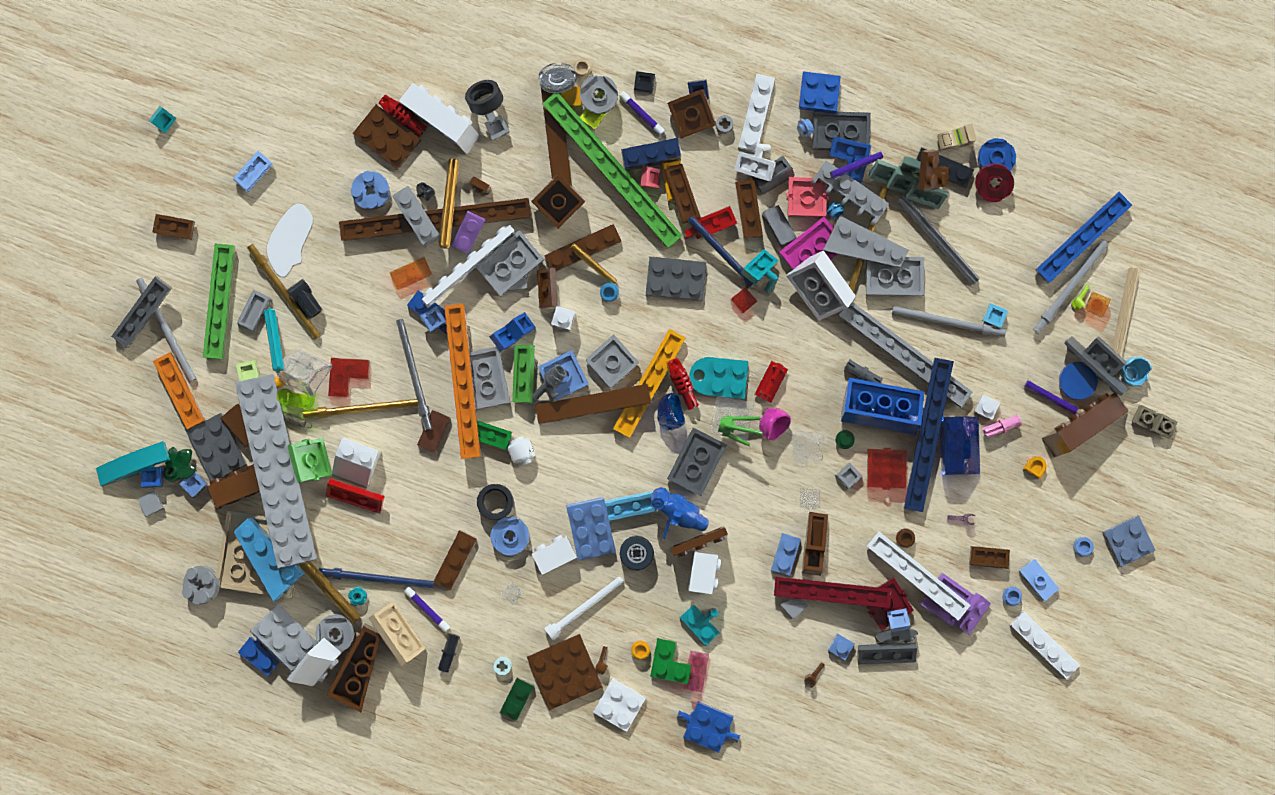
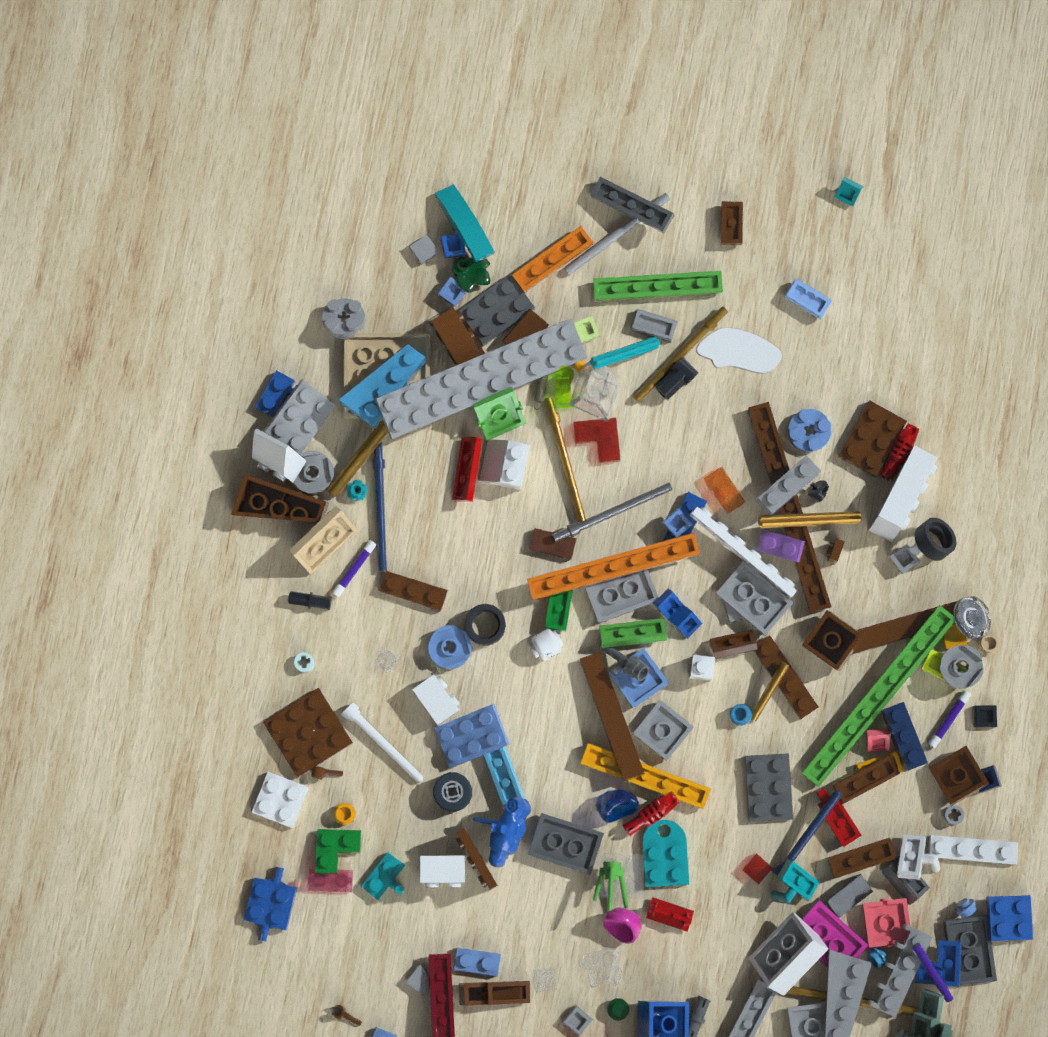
camera: 85 degrees right, 5 degrees down
(516, 699) = (270, 684): dark green plate -> none

